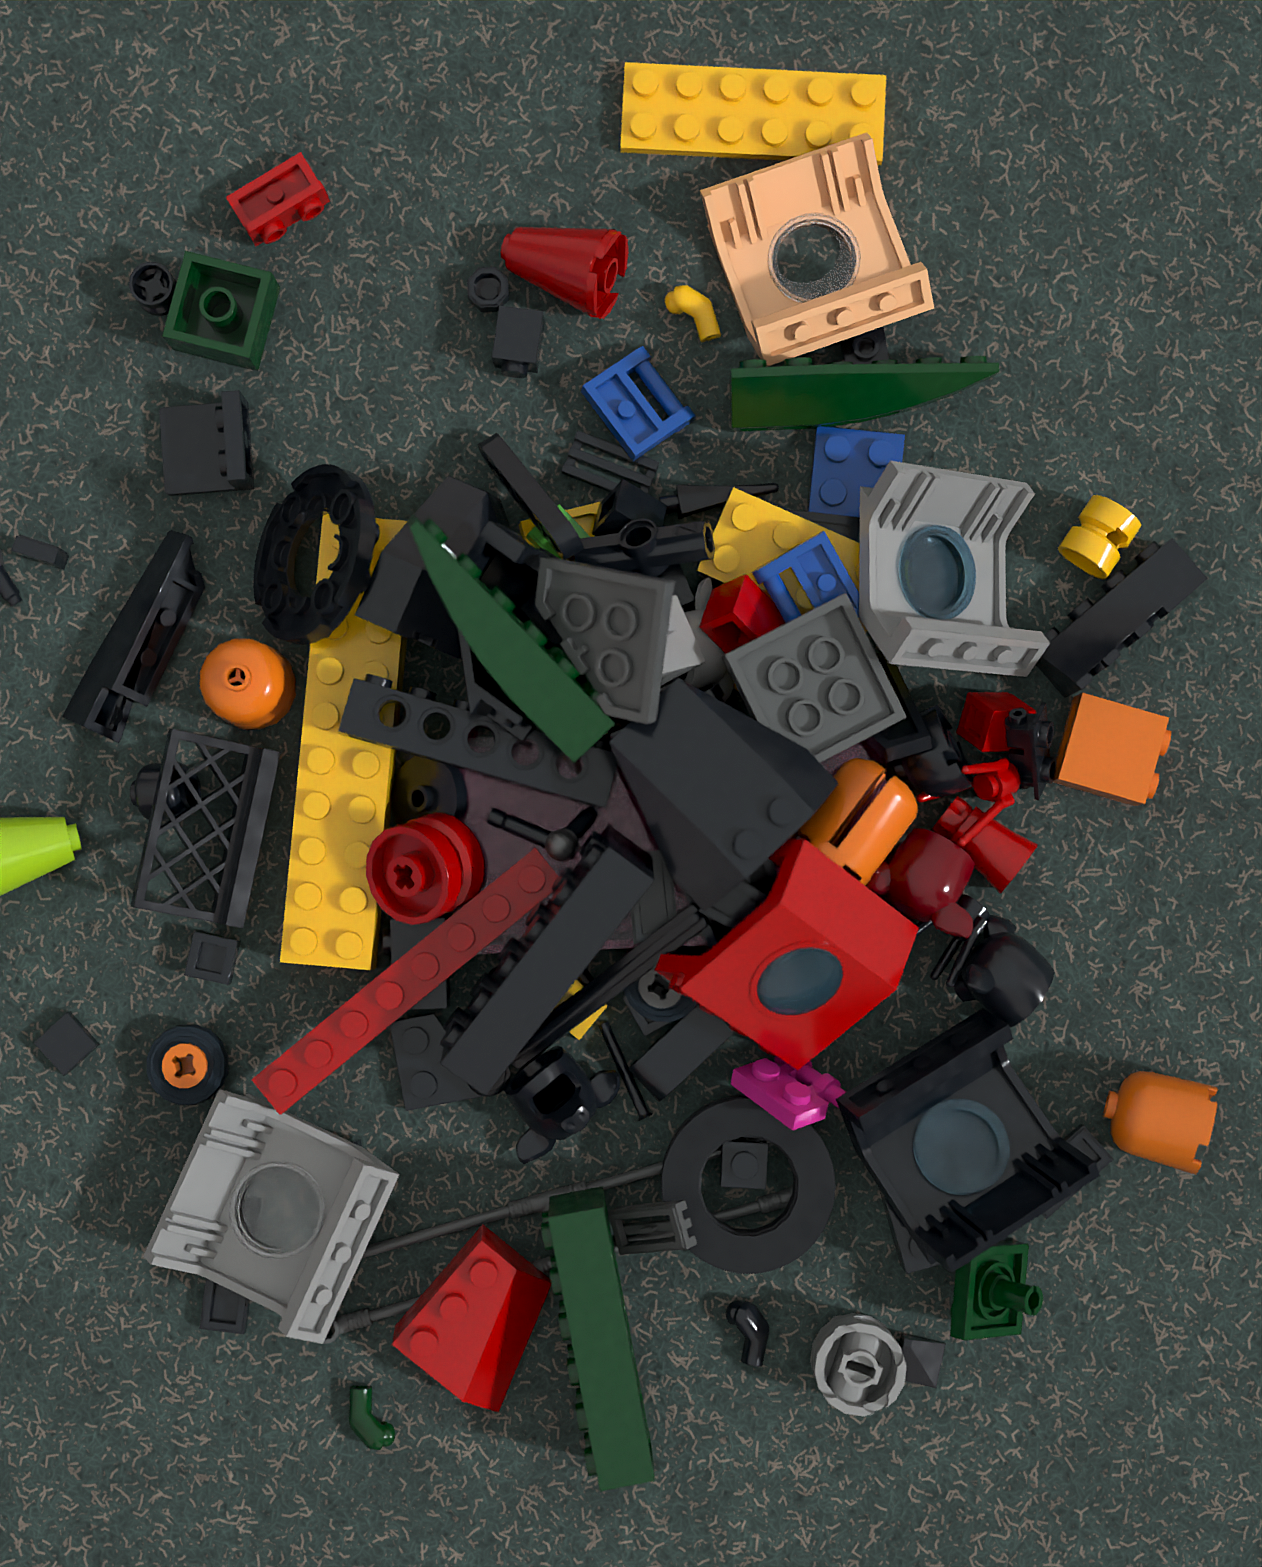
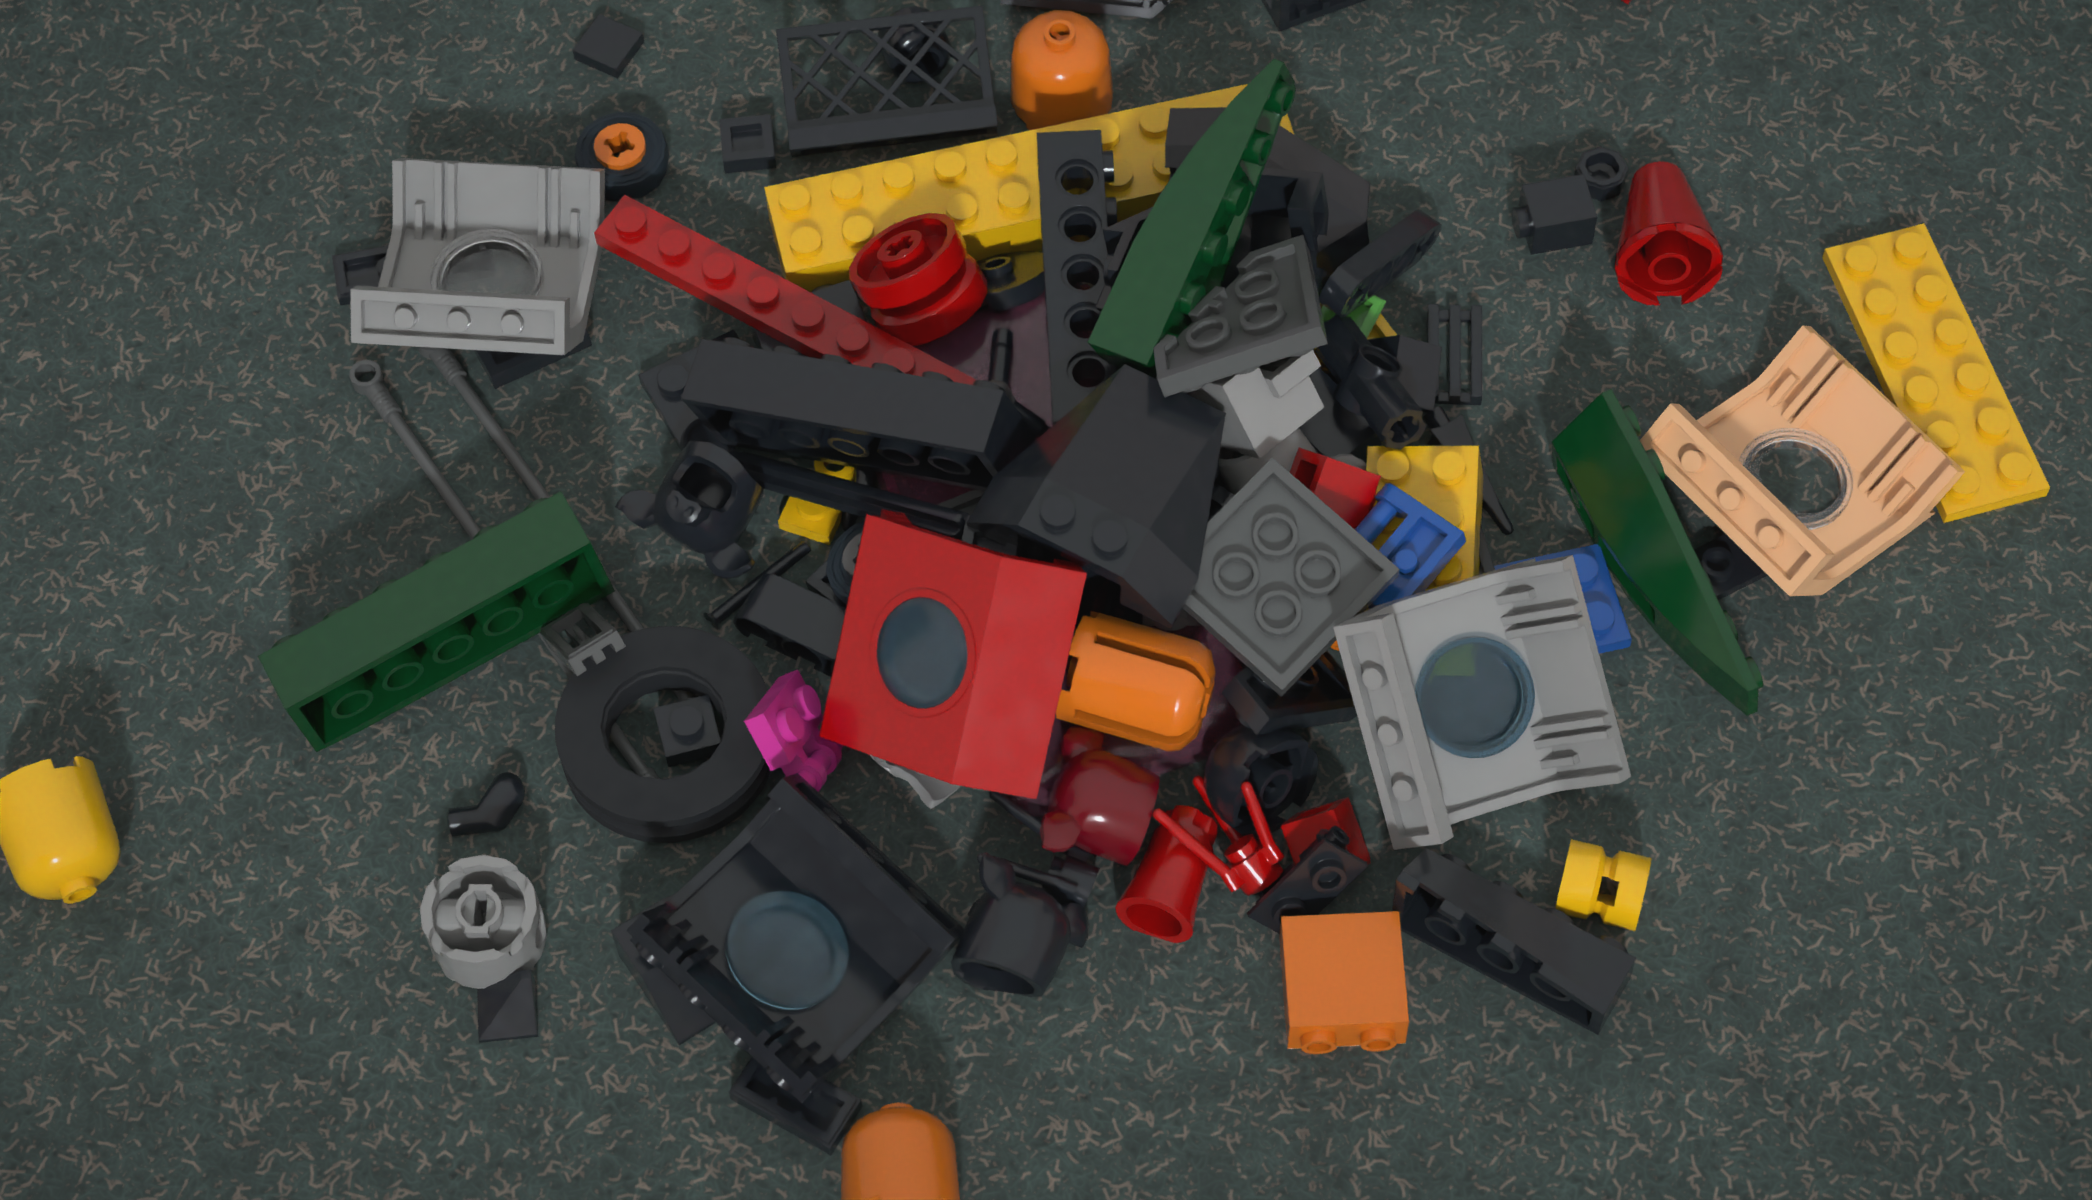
camera: 75 degrees right, 25 degrees down
(350, 506) = (1217, 75): black plate -> none
(363, 1422) = (273, 441): dark green arm -> none
(475, 1320) = (412, 497): red wedge -> none
(628, 411) = (1525, 343): blue plate -> none
(697, 306) = (1681, 379): yellow arm -> none
(993, 1293) = (619, 1043): dark green plate -> none

